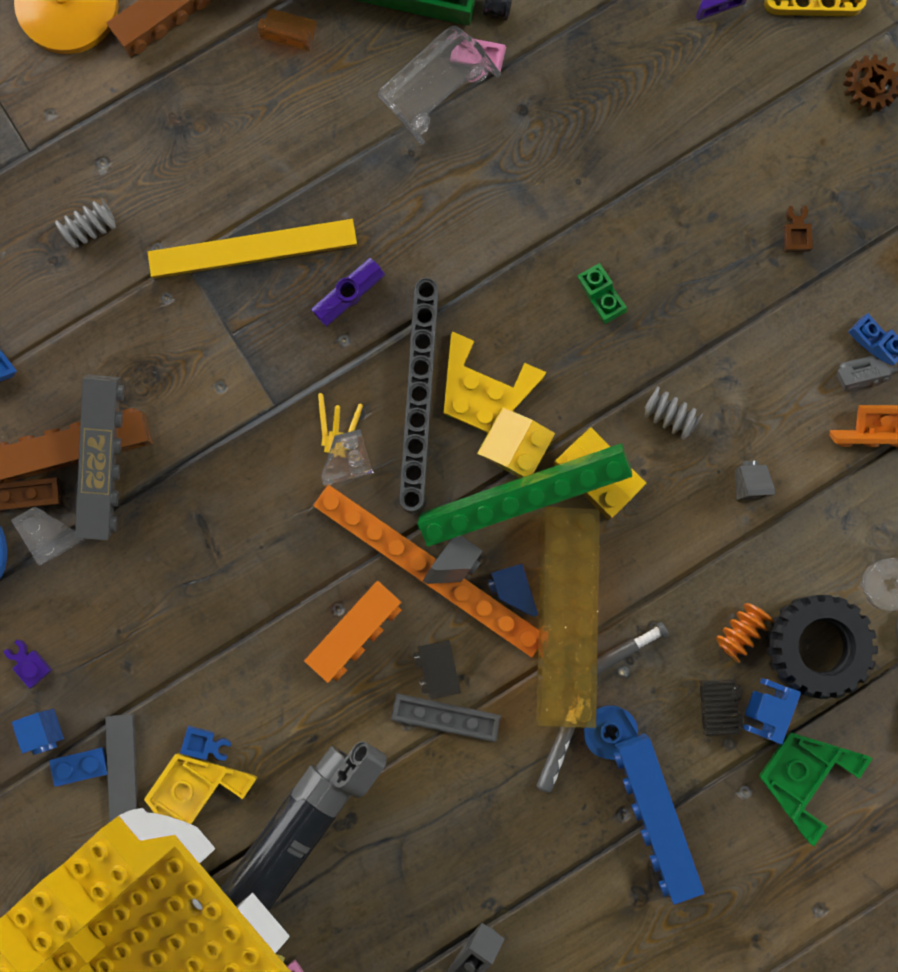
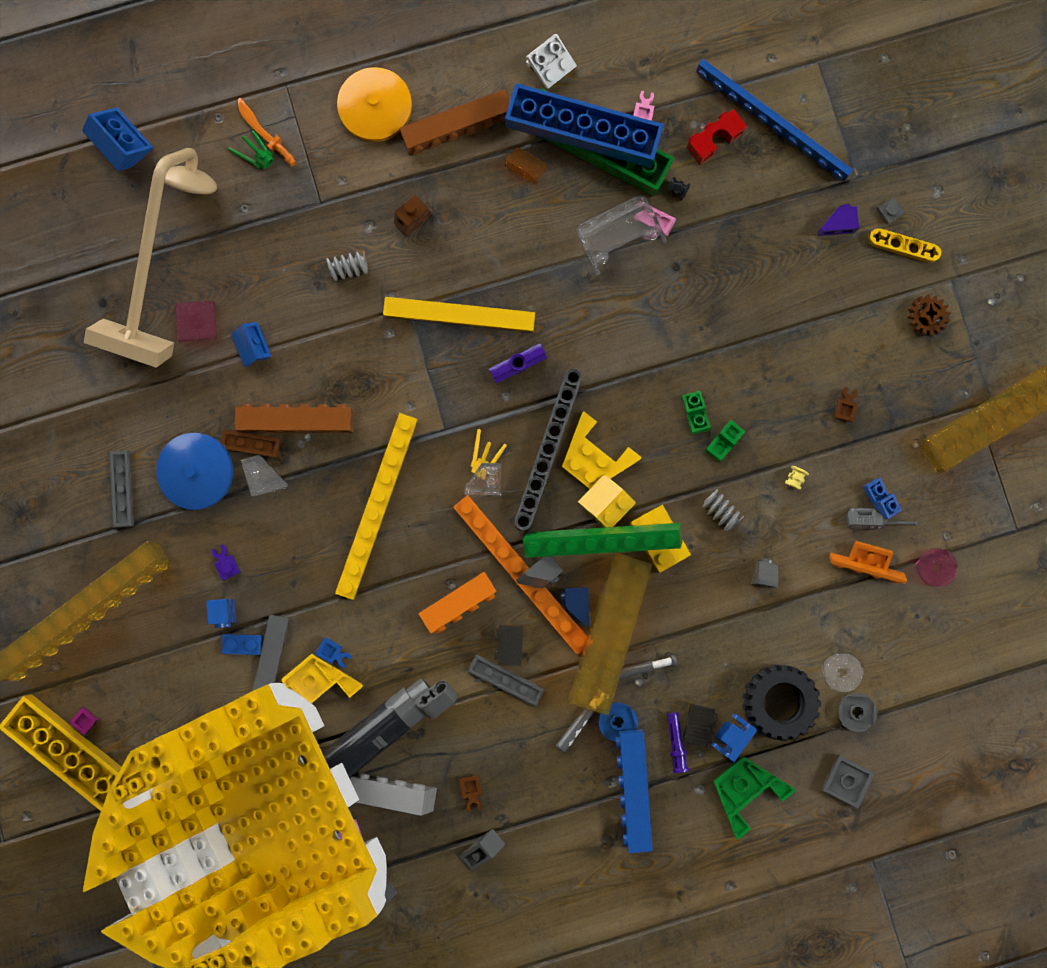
camera: 10 degrees right, 0 degrees up
(98, 457) = (313, 433): dark grey brick -> none
(155, 133) = (412, 214): none -> reddish brown torso
(210, 533) = (376, 506): none -> yellow plate
(336, 913) = (394, 795): none -> light grey wedge
(438, 877) = (471, 789): none -> reddish brown plate
(650, 321) = (724, 441): none -> green slope
(700, 748) = (678, 752): none -> dark purple pin
(743, 631) = (730, 677): orange piece -> none
(758, 343) = (796, 477): none -> light yellow bush

